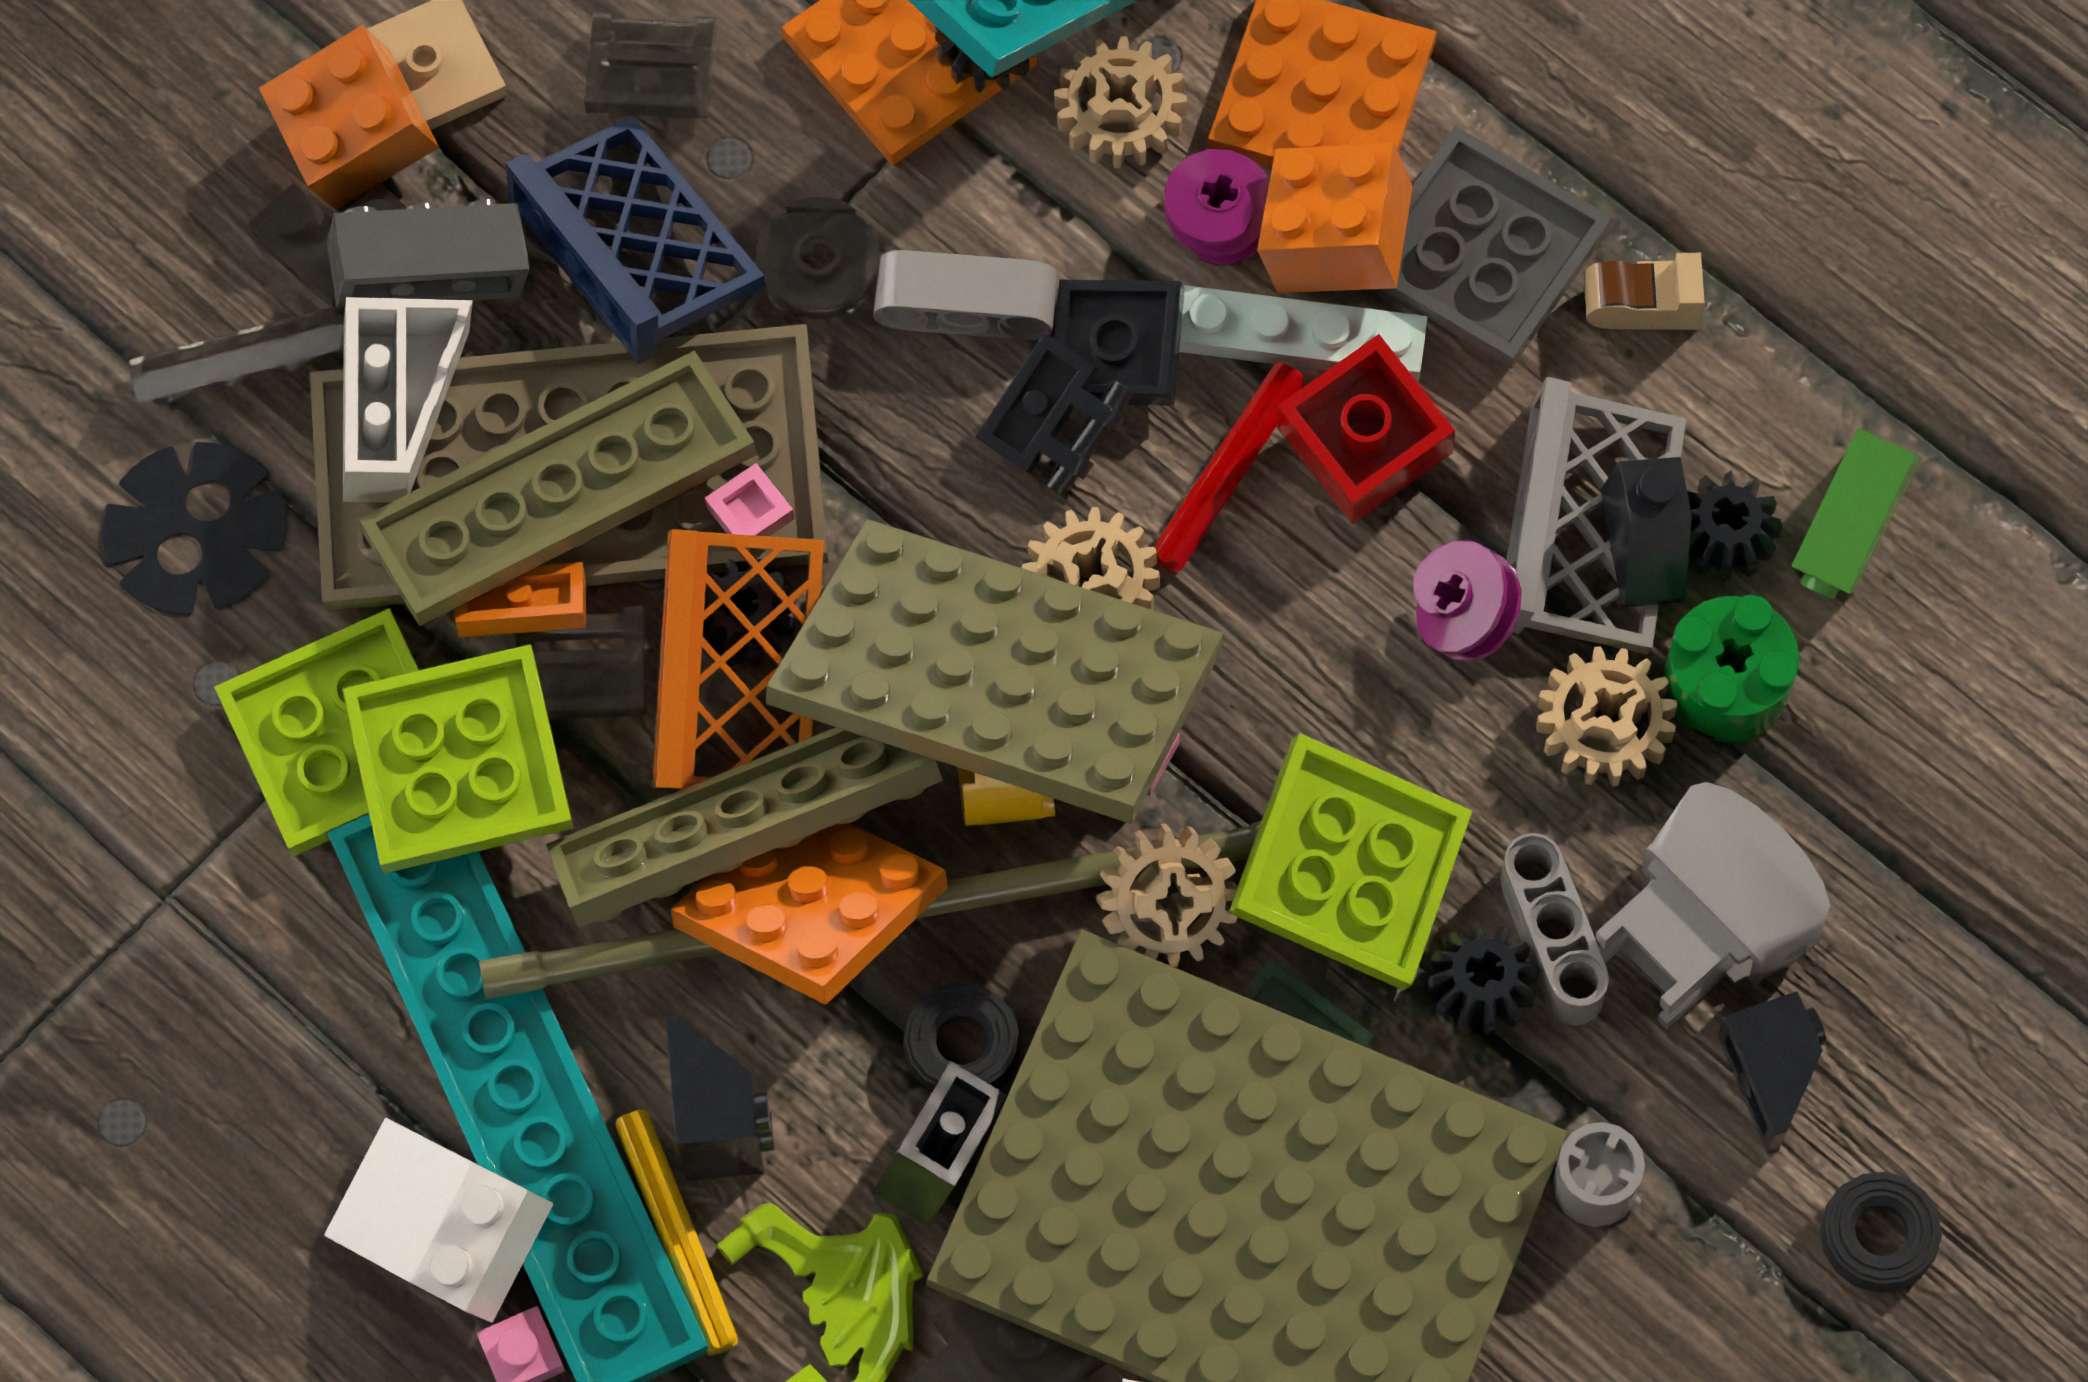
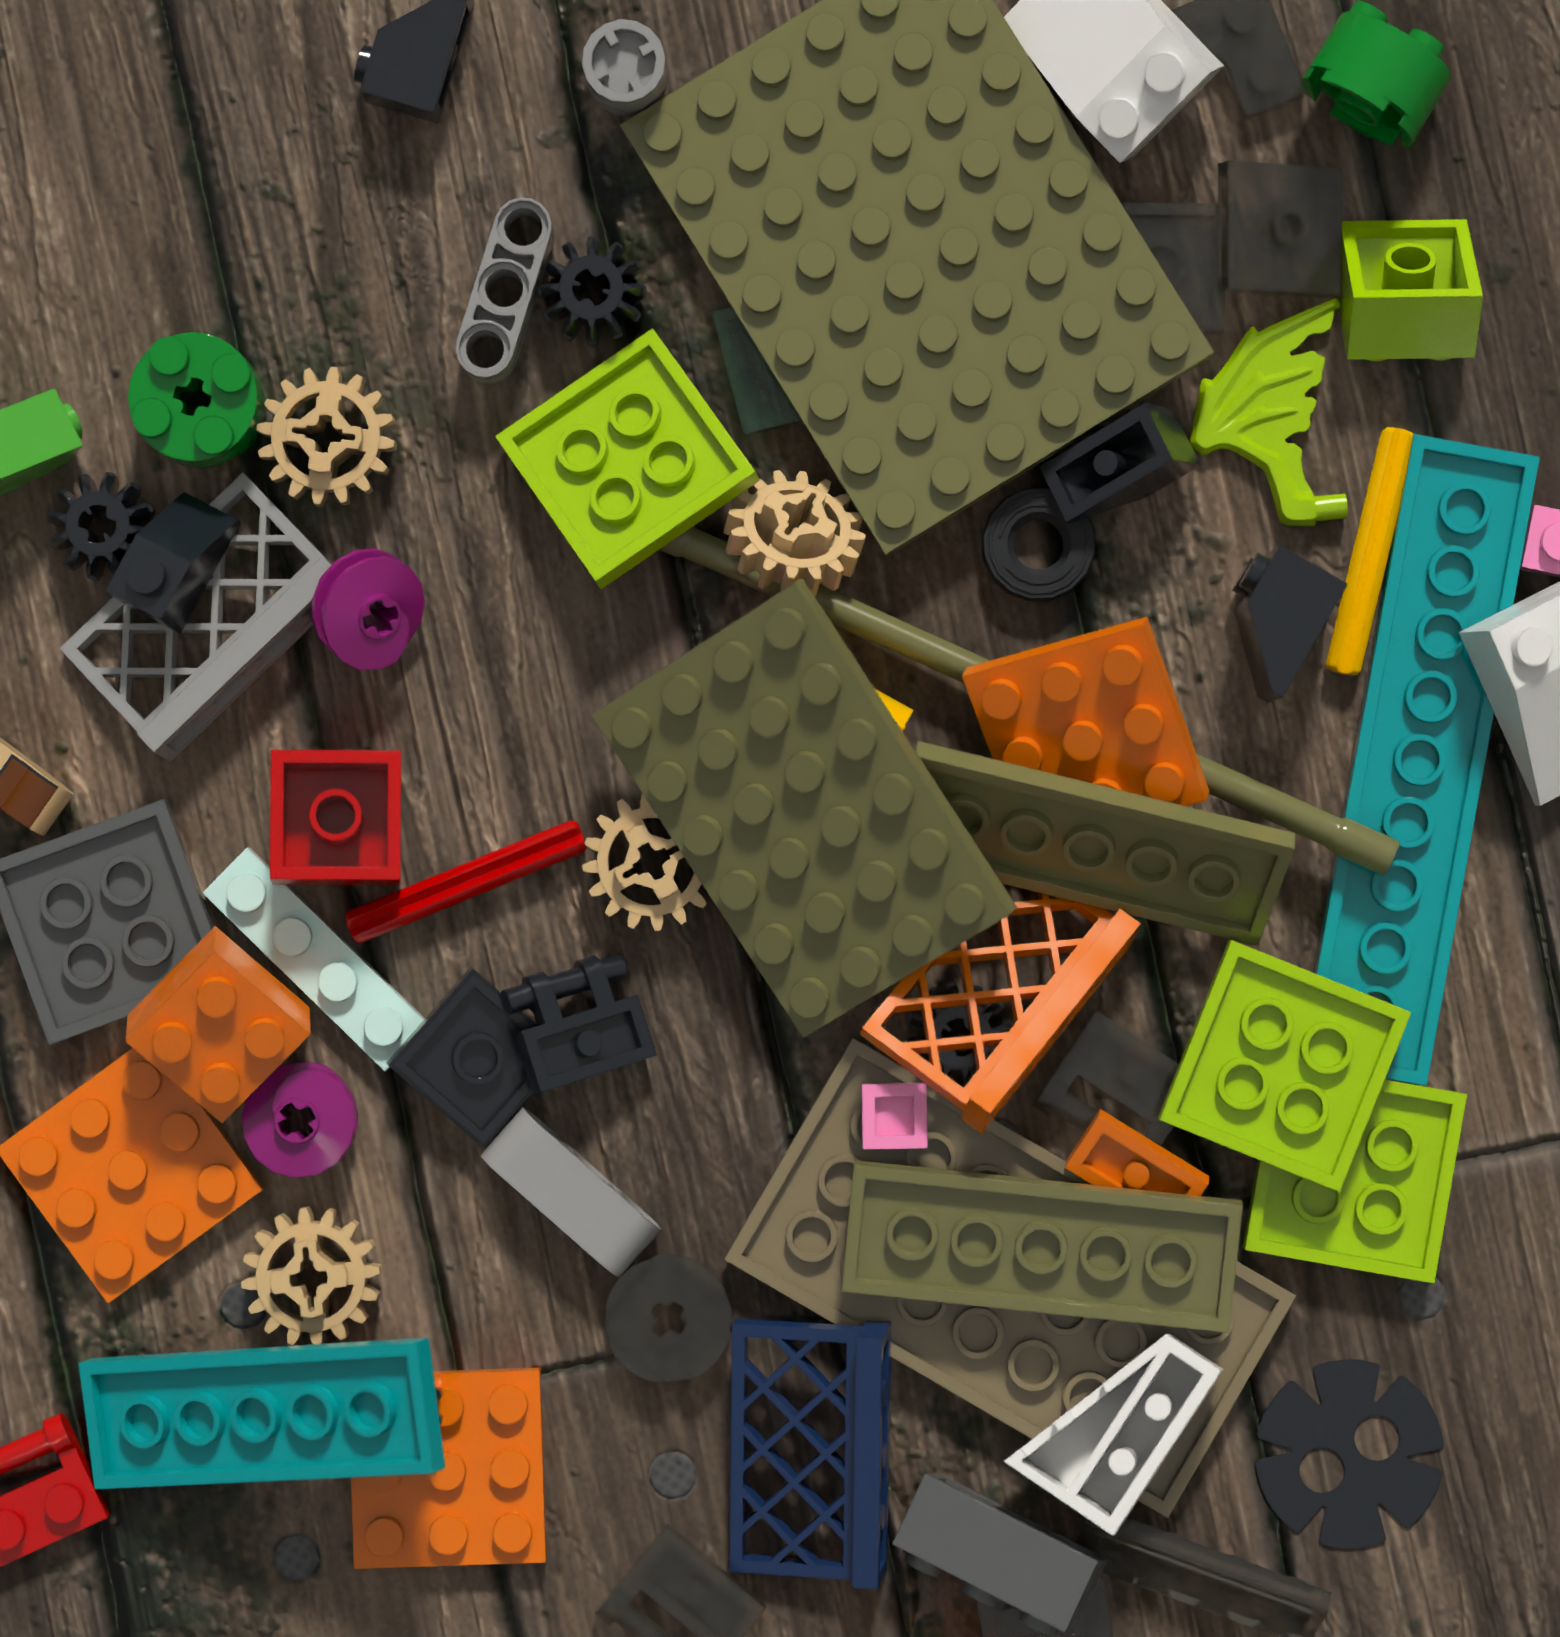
camera: 145 degrees left, 20 degrees up
(1718, 893) = (365, 211): light grey piece -> none

